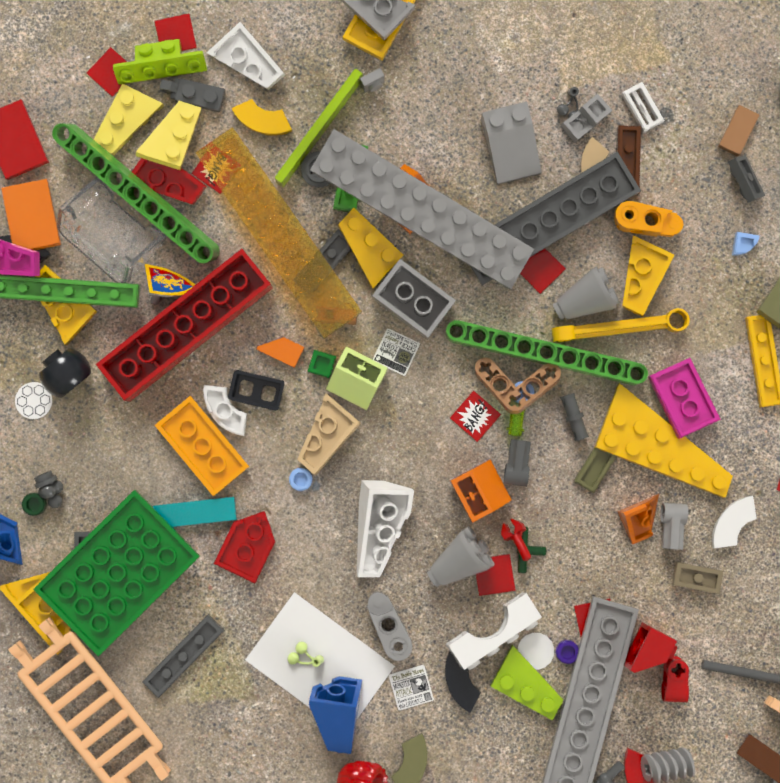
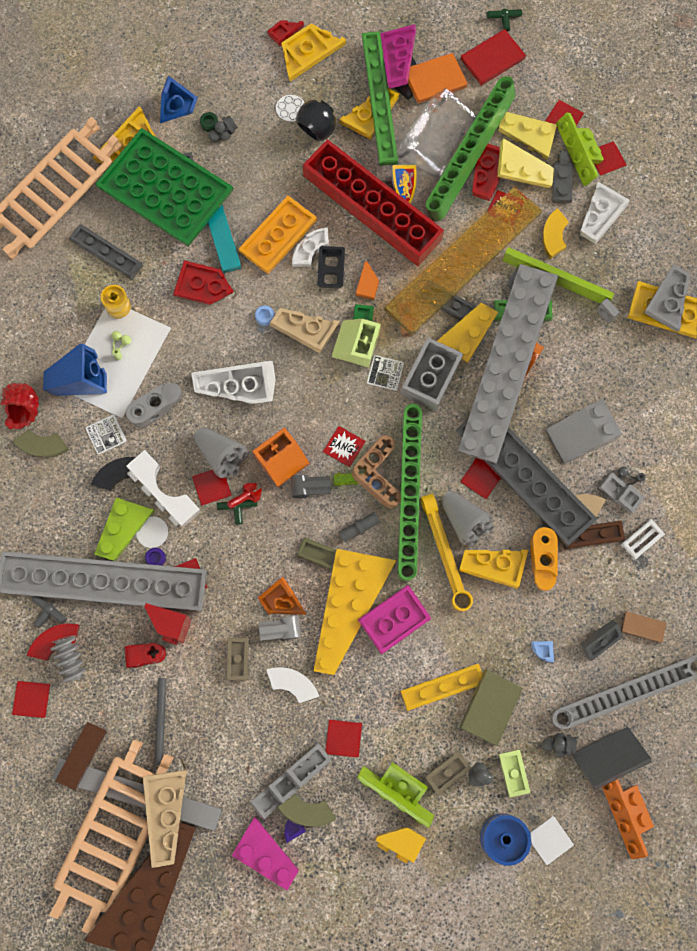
camera: 75 degrees right, 10 degrees down
(254, 653) = (115, 301): none -> yellow wheel

